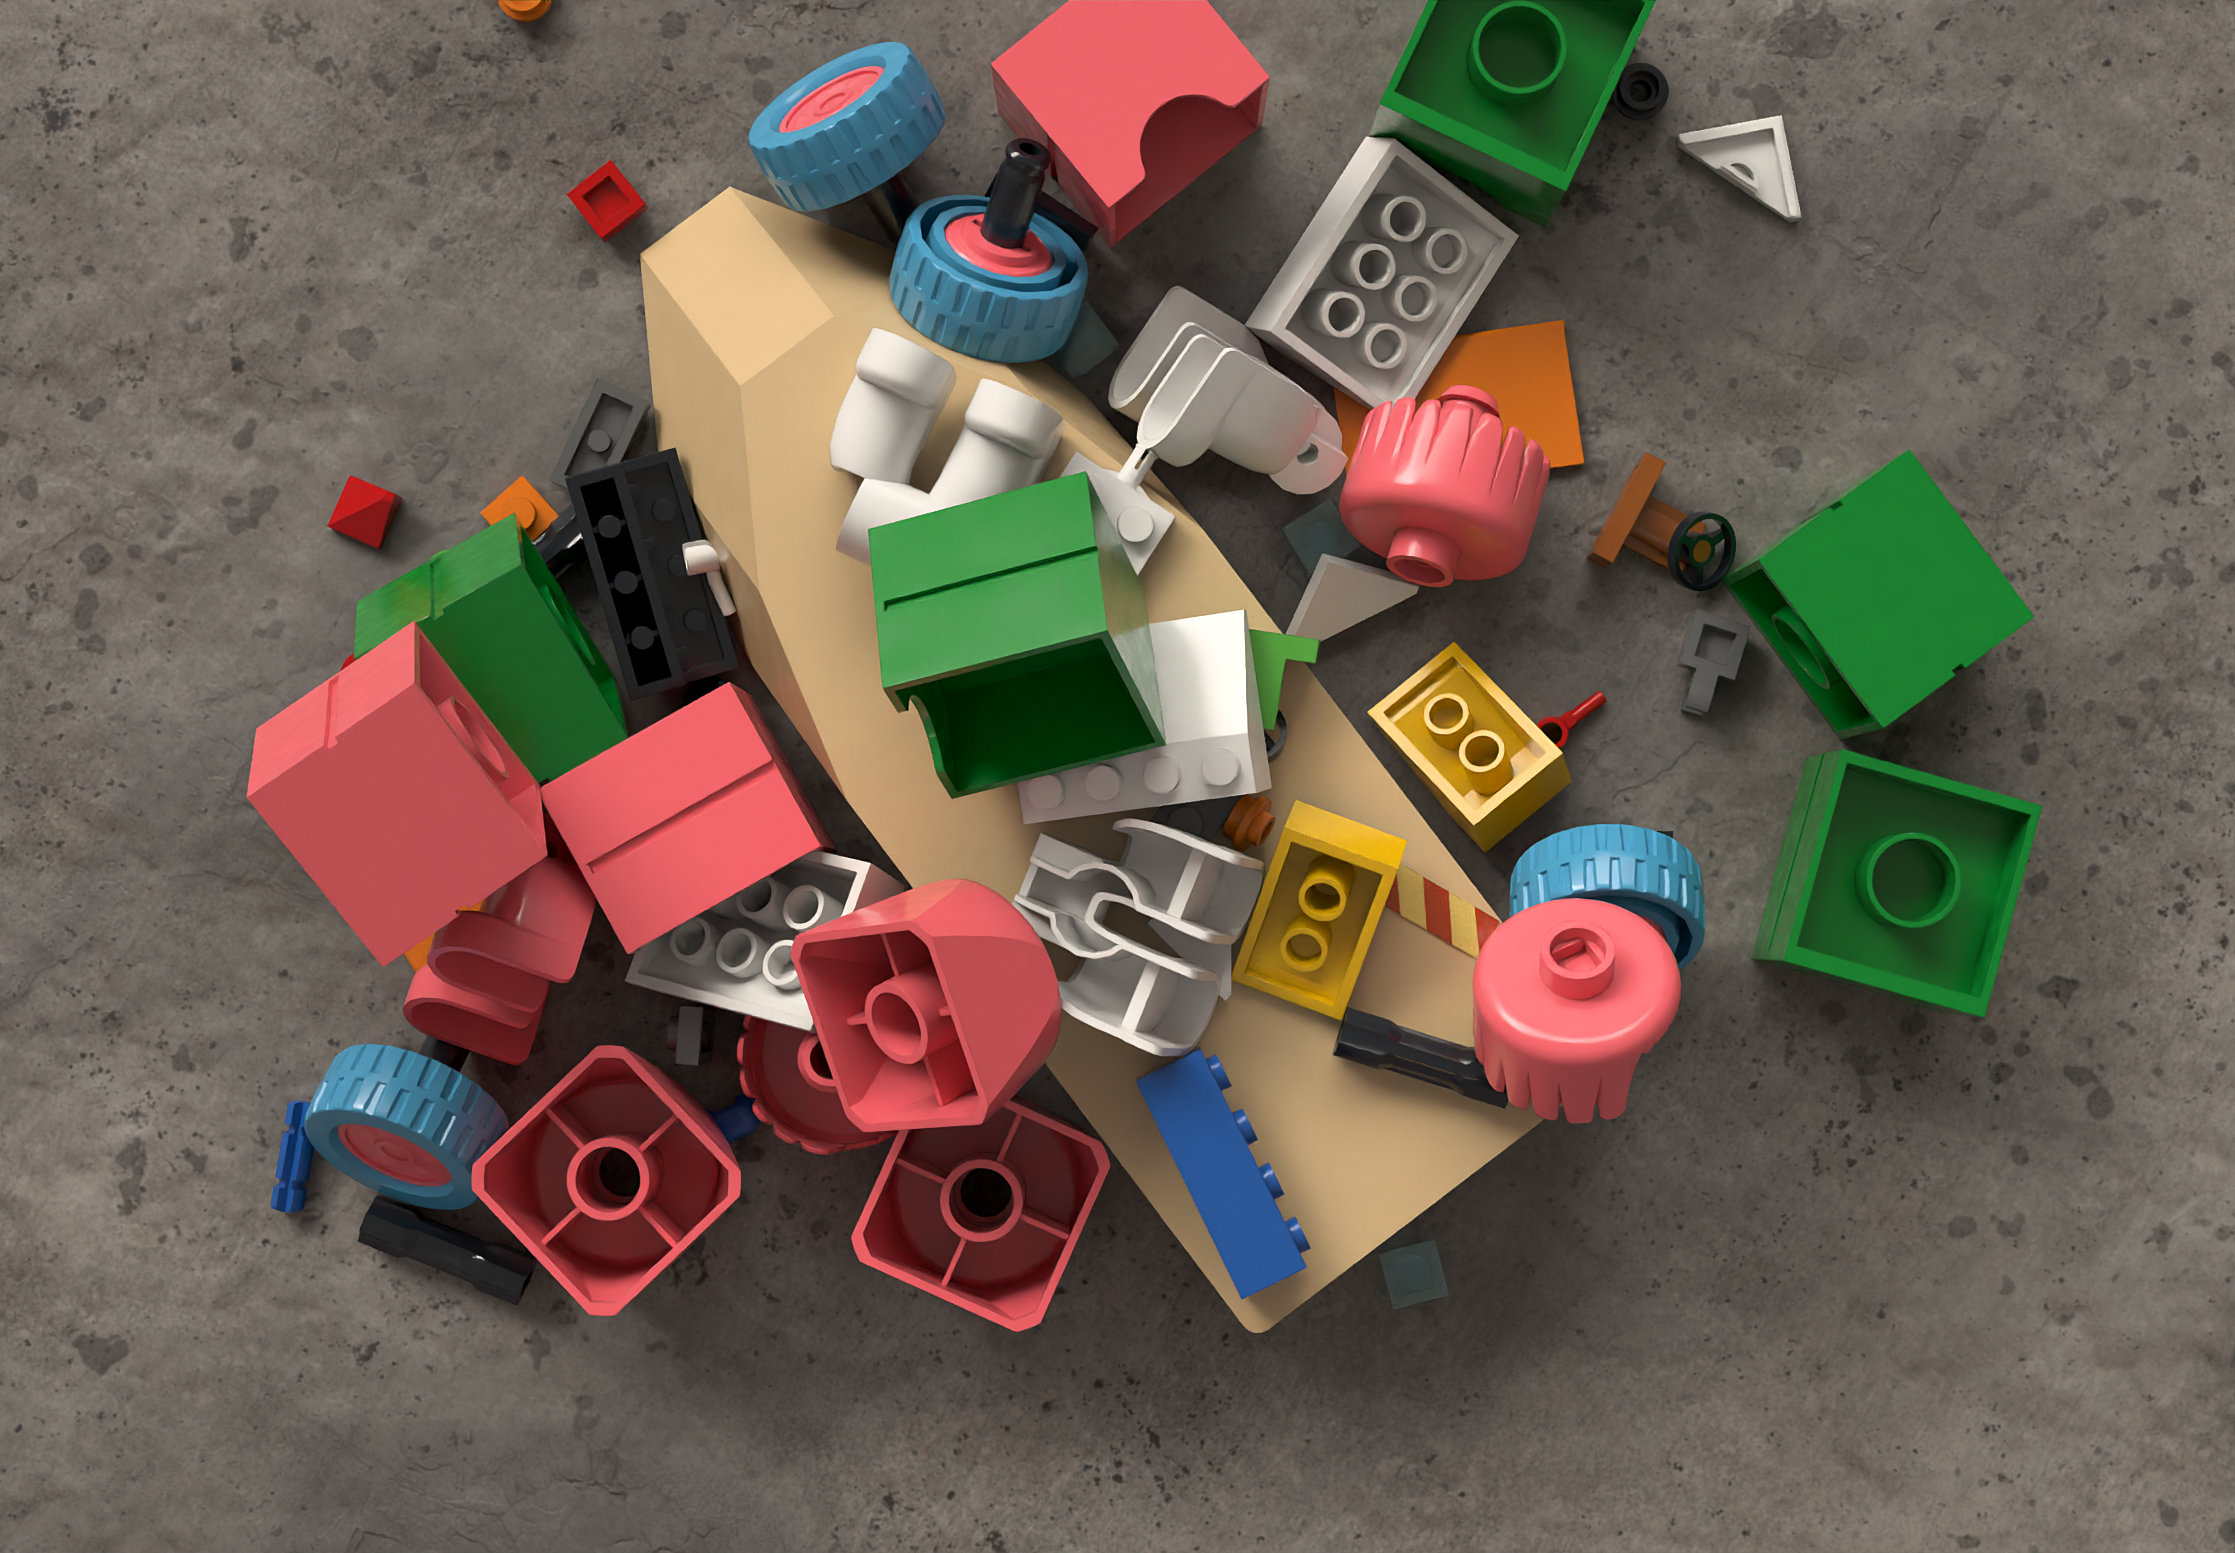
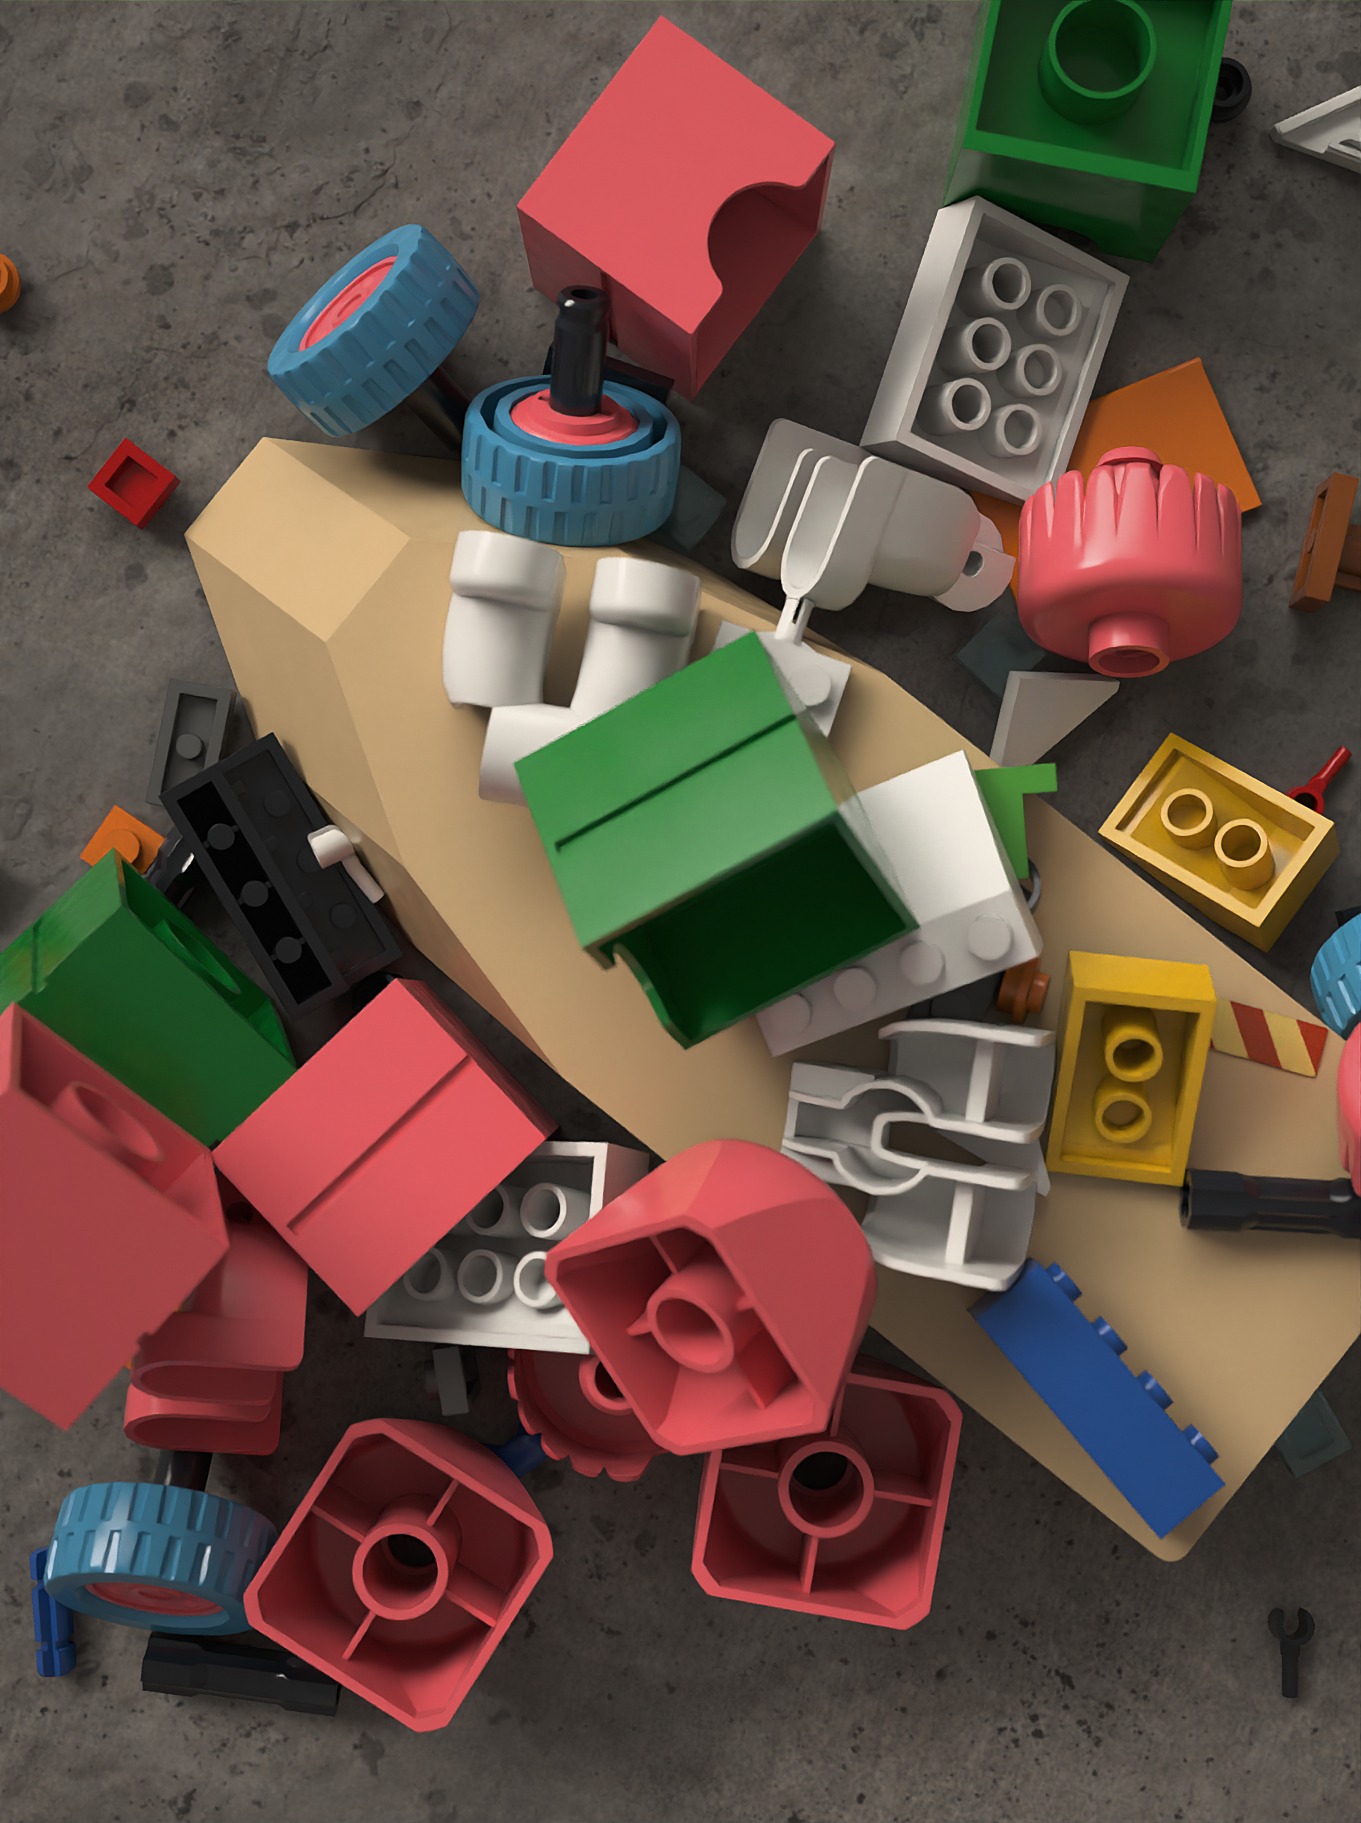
camera: 15 degrees left, 0 degrees up
(1353, 1460) = (1291, 1646): none -> black hand

